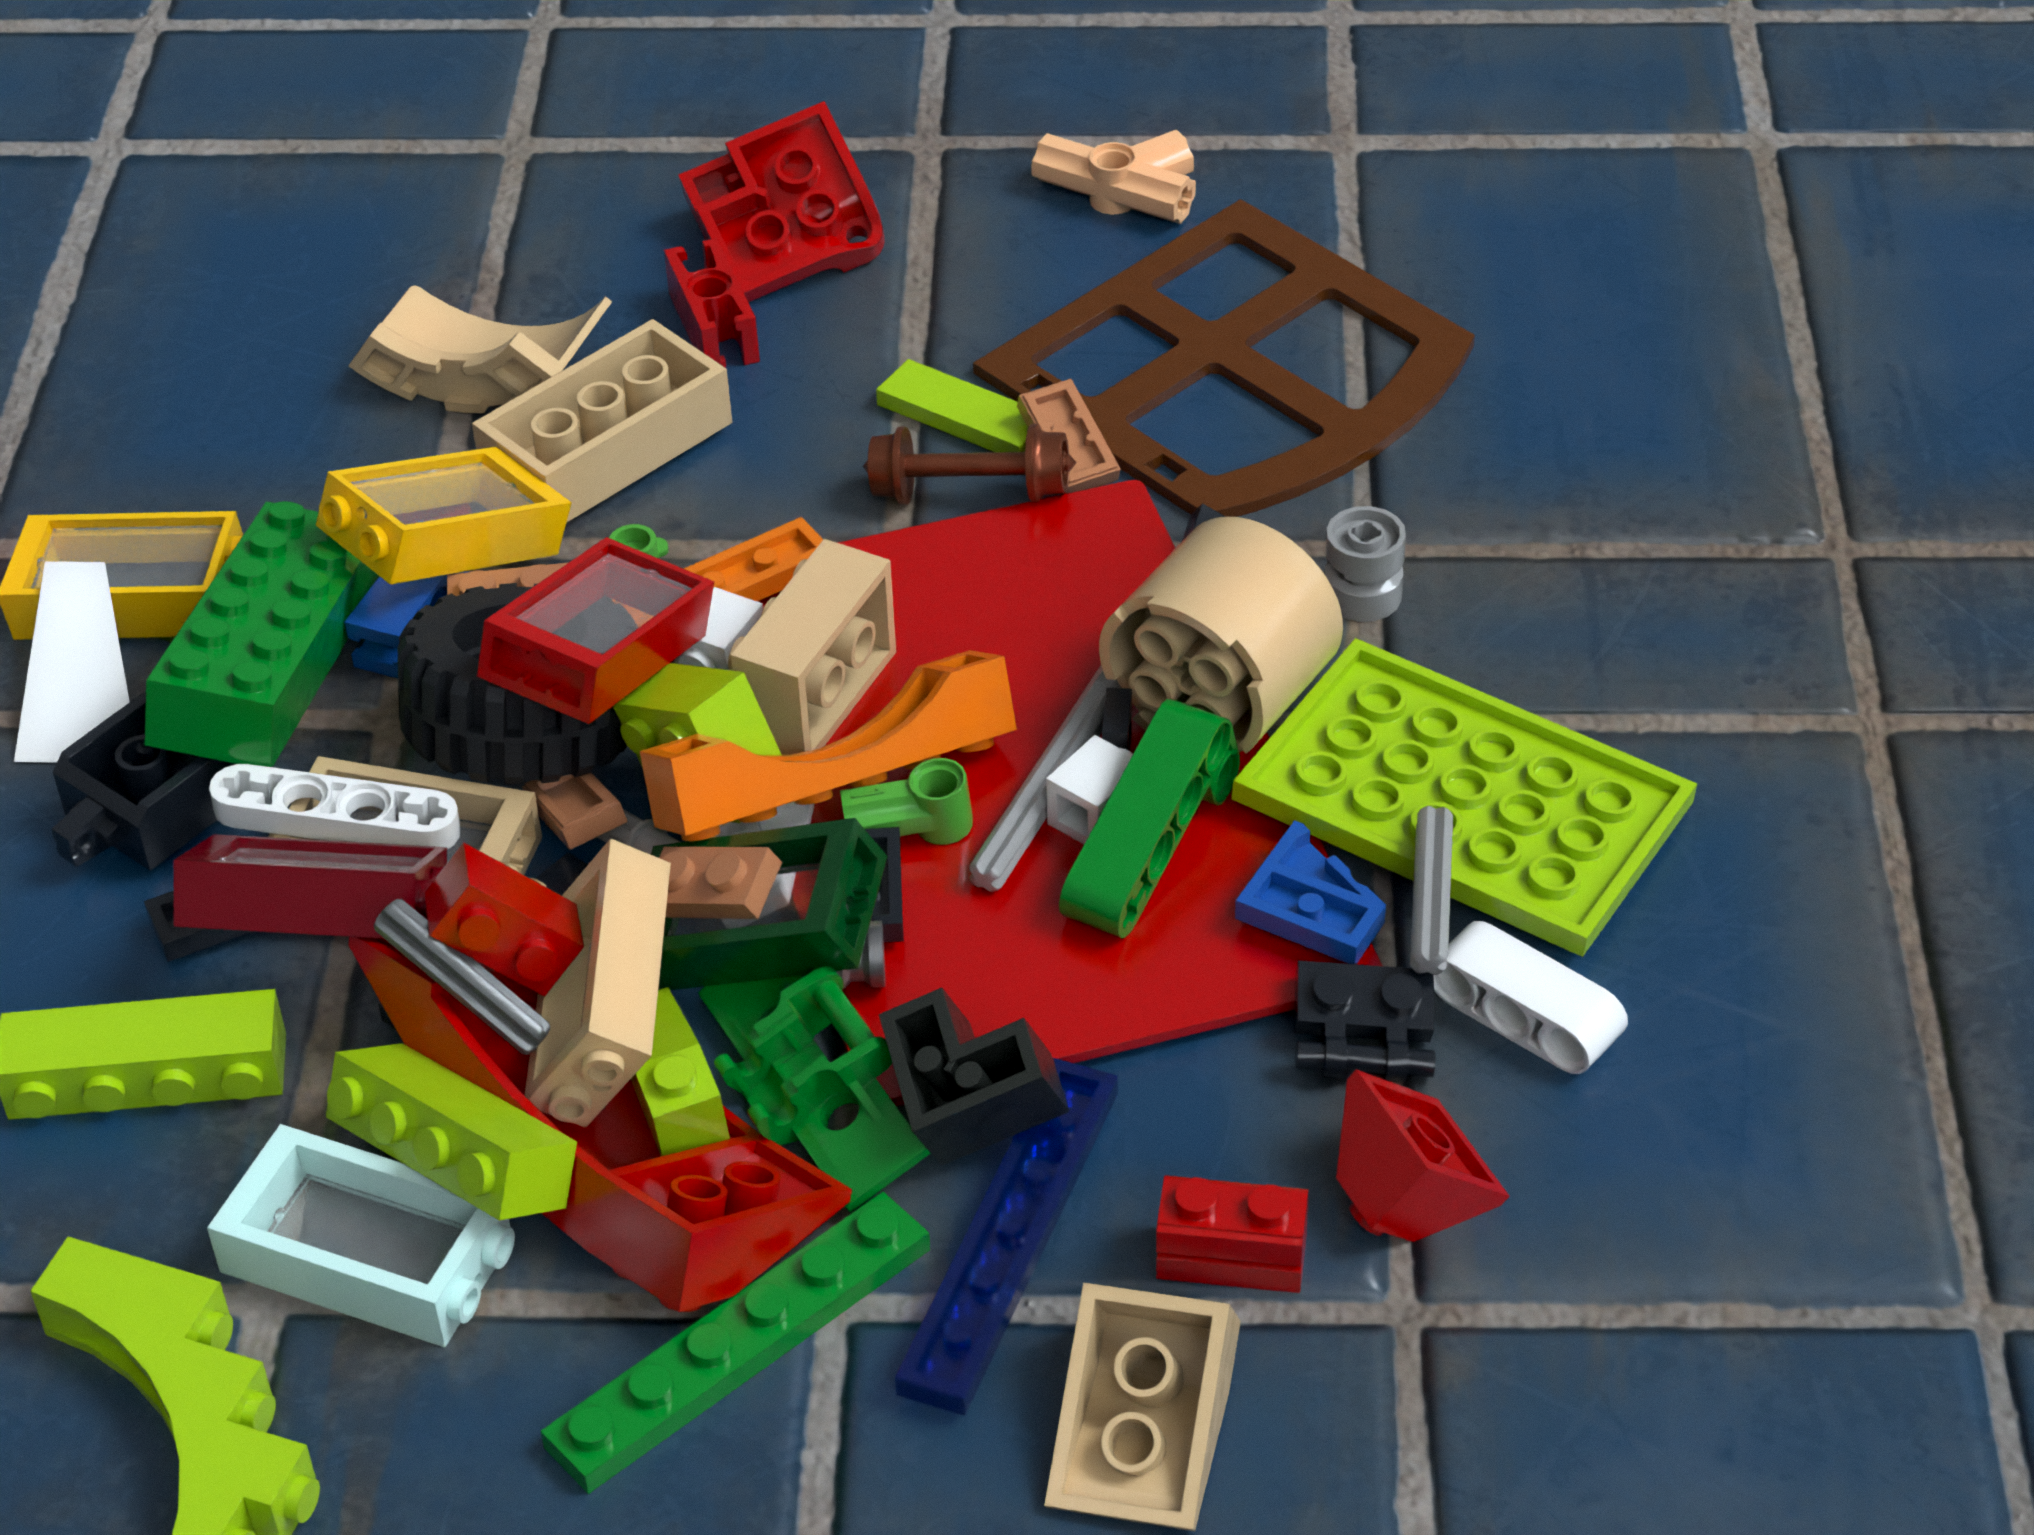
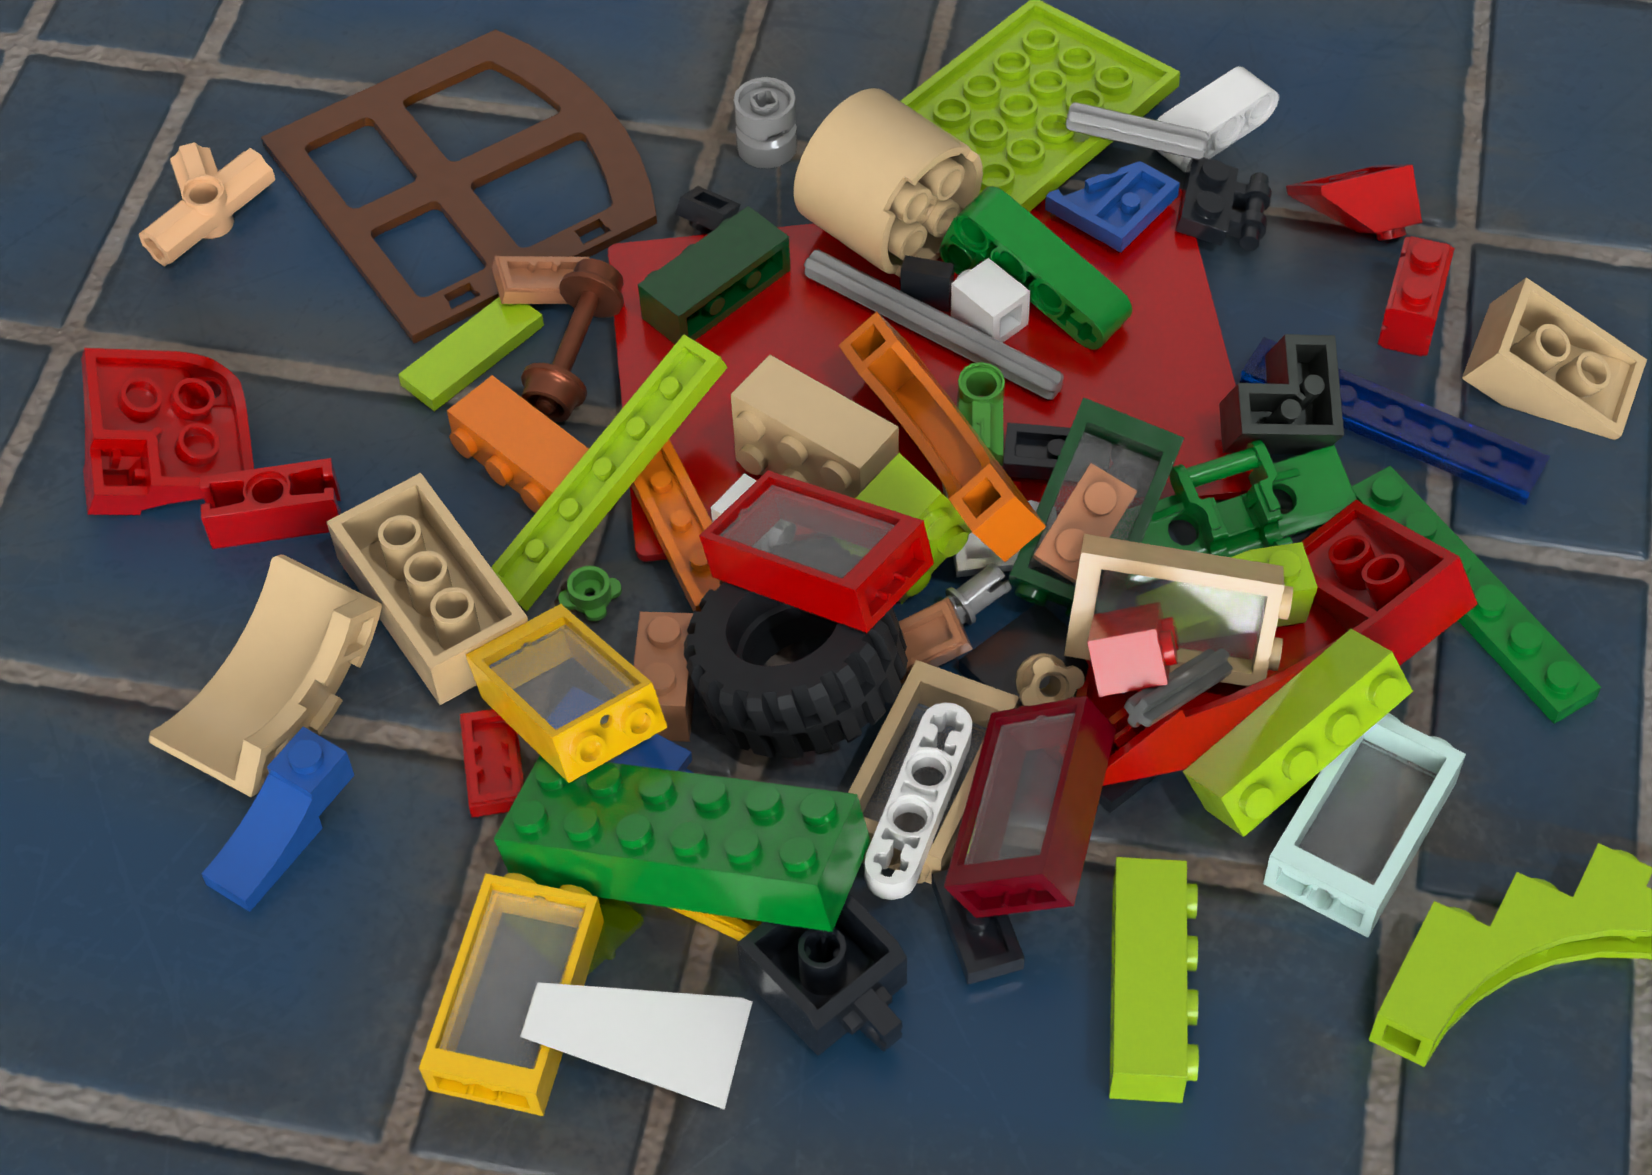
camera: 80 degrees left, 10 degrees up
(360, 390) = (281, 819): none -> blue slope
(761, 505) = (607, 470): none -> lime plate
(811, 463) = (513, 441): none -> orange brick
(1073, 547) = (714, 276): none -> dark green brick

